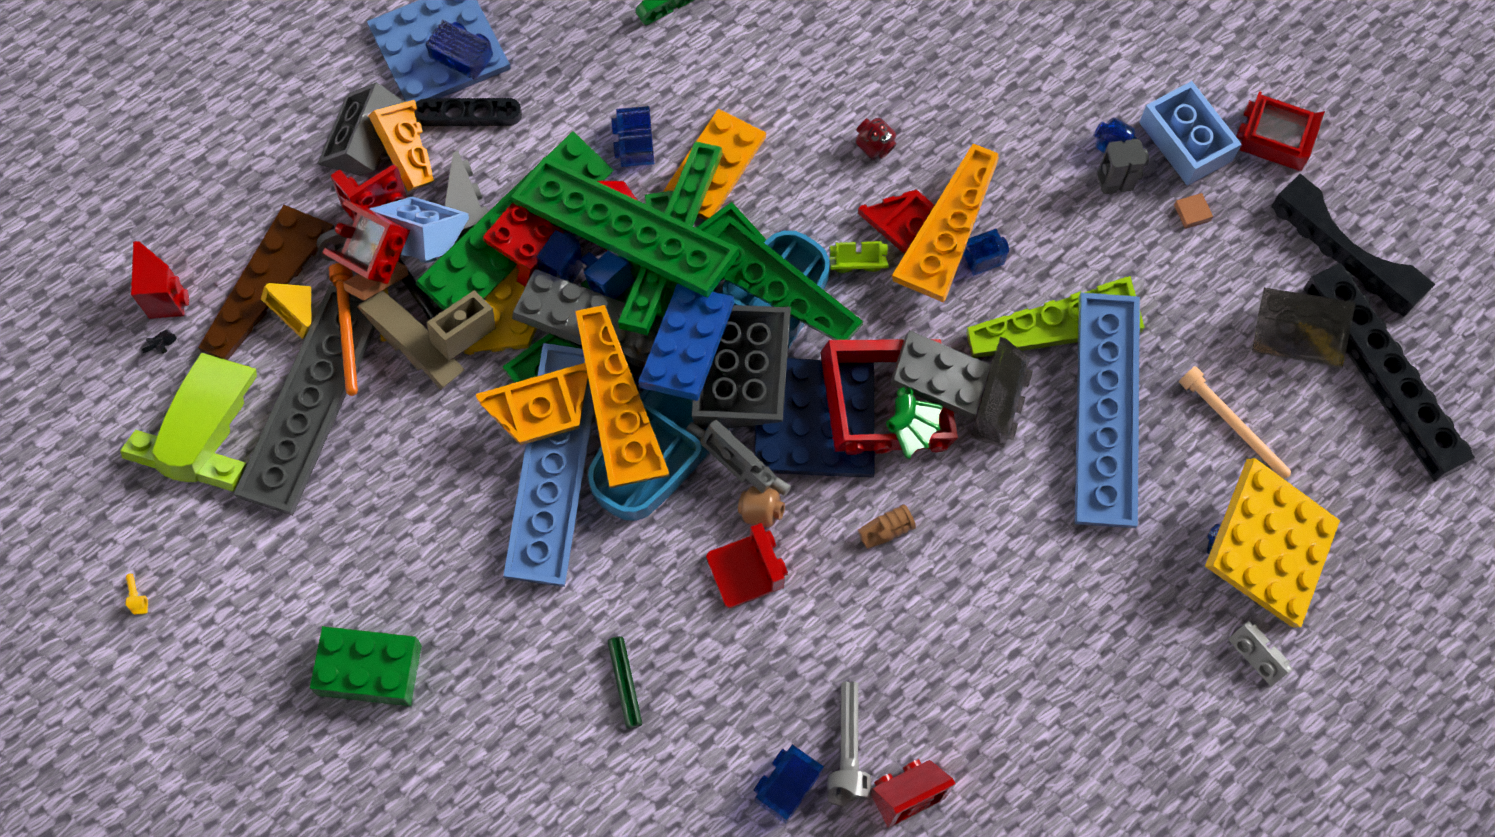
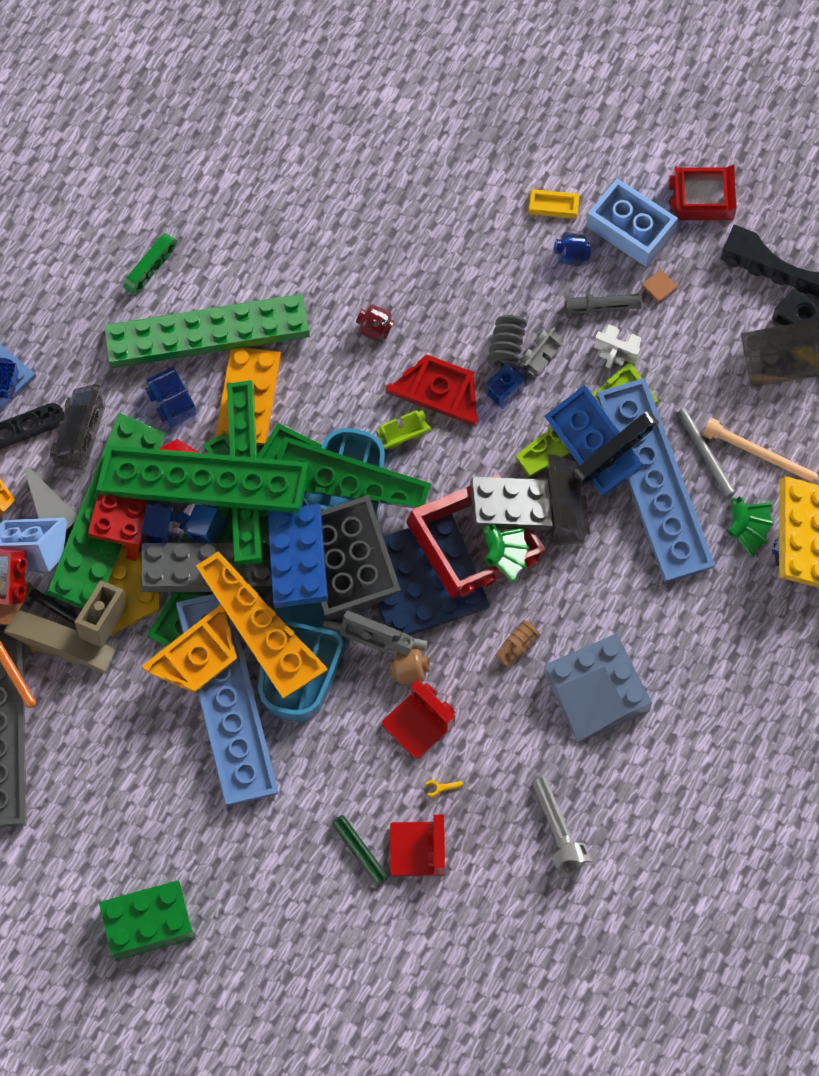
camera: 20 degrees left, 0 degrees up
(527, 133) = (78, 428): none -> clear smoke slope
(687, 705) = (417, 848): none -> red bracket
(700, 84) = (206, 331): none -> plate
(741, 650) = (442, 787): none -> yellow hand
(788, 783) = (523, 876): clear blue brick -> none
(911, 791) = (622, 843): red slope -> none
(940, 243) = (466, 389): light orange wing -> none
(954, 608) = (597, 688): none -> sand blue slope
(1006, 206) = (506, 341): none -> dark grey piece
(1027, 235) = (544, 344): none -> light grey hinge
(1057, 343) = (586, 429): none -> blue plate
(1076, 357) = (615, 448): none -> black beam
(1112, 202) = (591, 304): none -> dark grey pin
(1114, 87) = (553, 204): none -> yellow tile
(1120, 258) = (616, 350): none -> white hips
(1122, 166) = (588, 271): dark grey brick -> none
(1175, 402) = (706, 452): none -> light grey bar
(1194, 496) = (750, 524): none -> green arm

